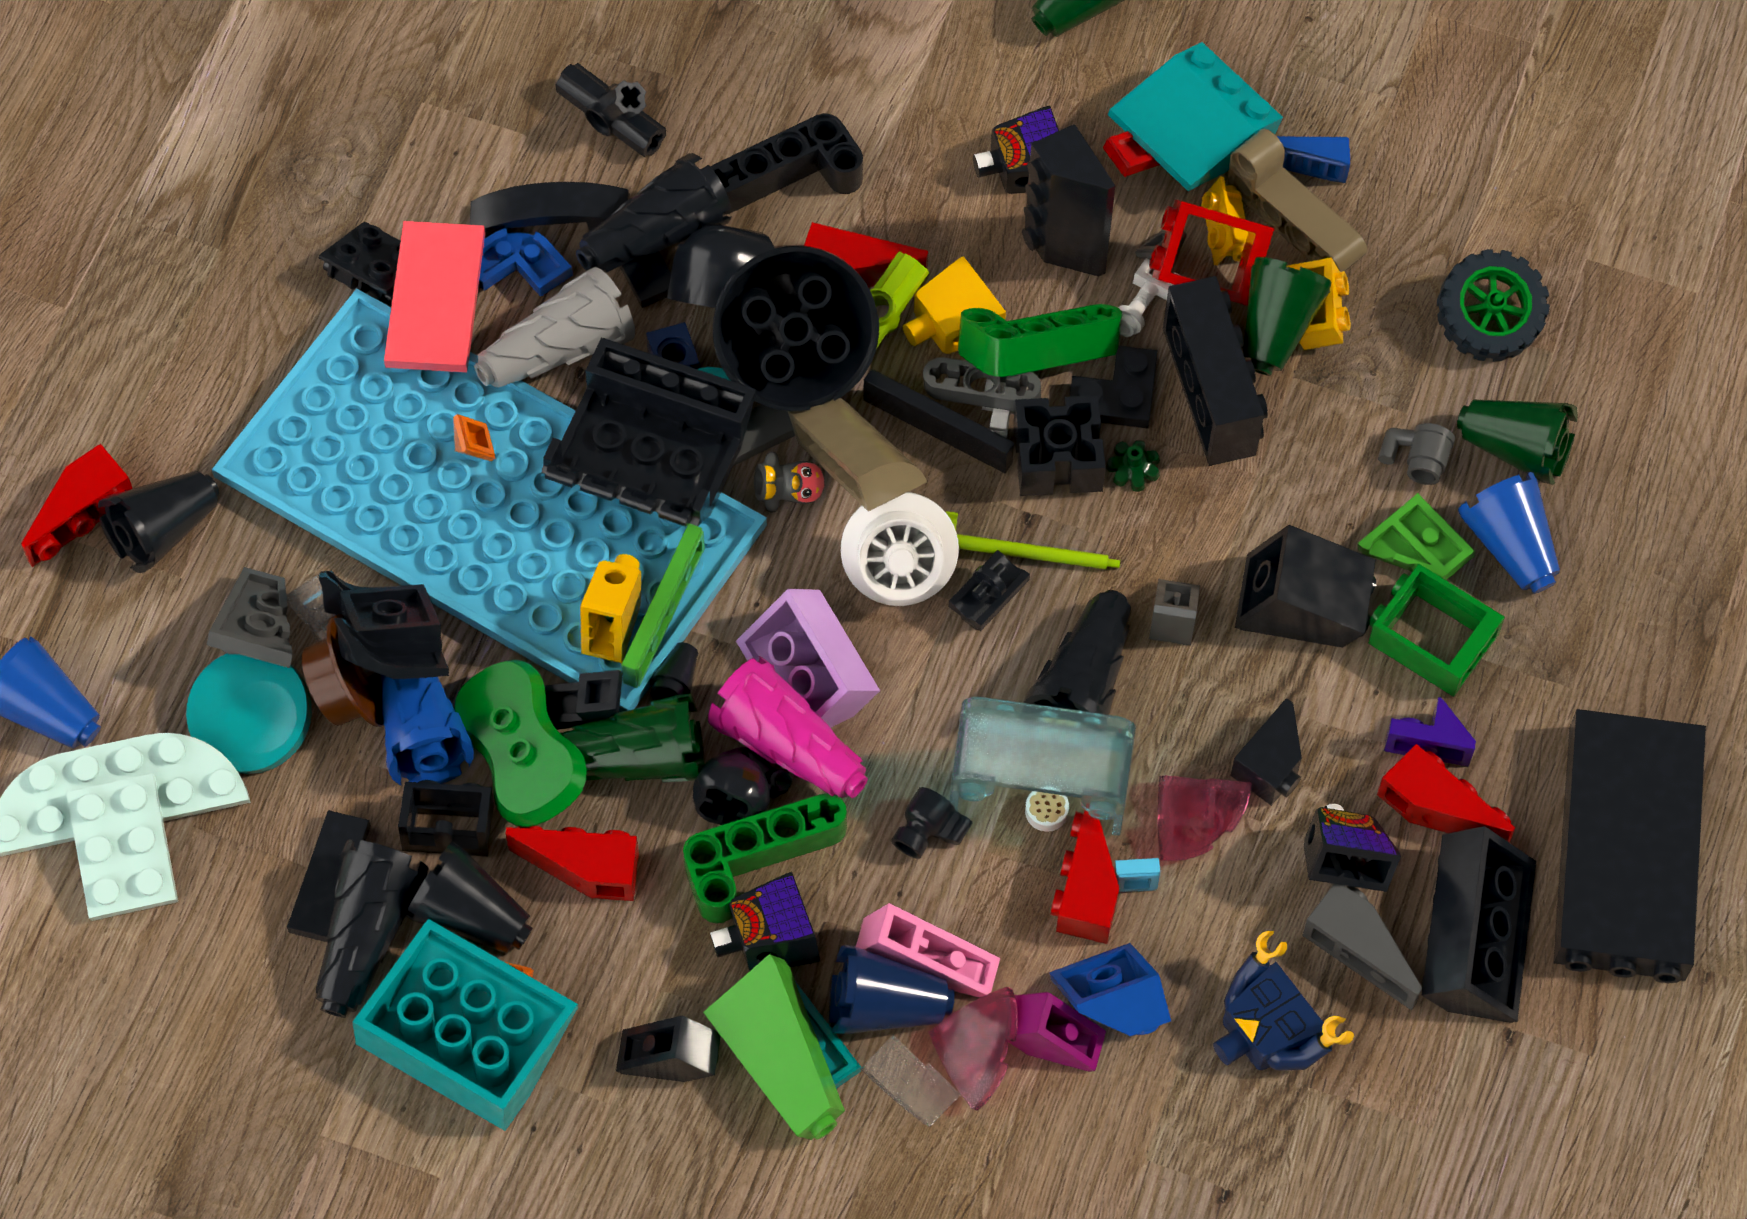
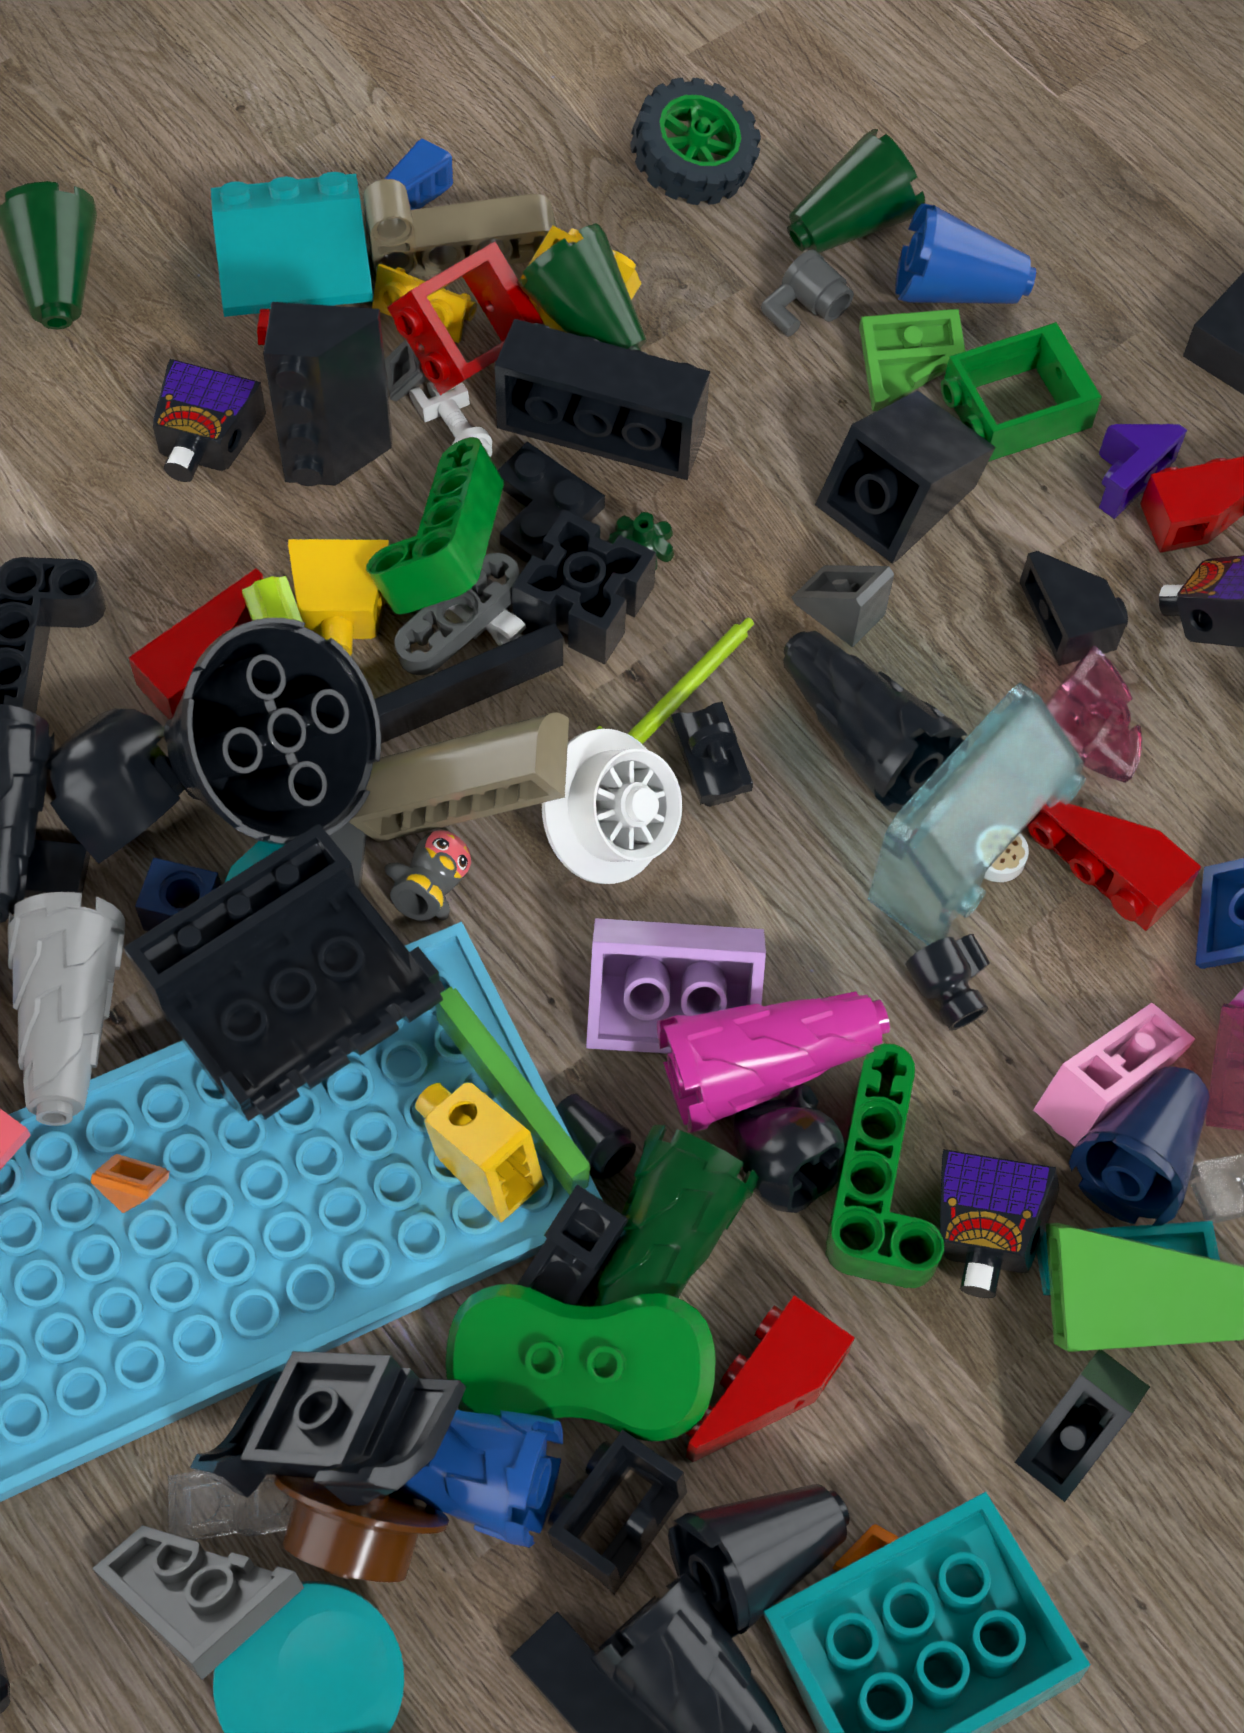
camera: 60 degrees left, 0 degrees up
(1137, 874) = (1144, 800): medium azure tile -> none

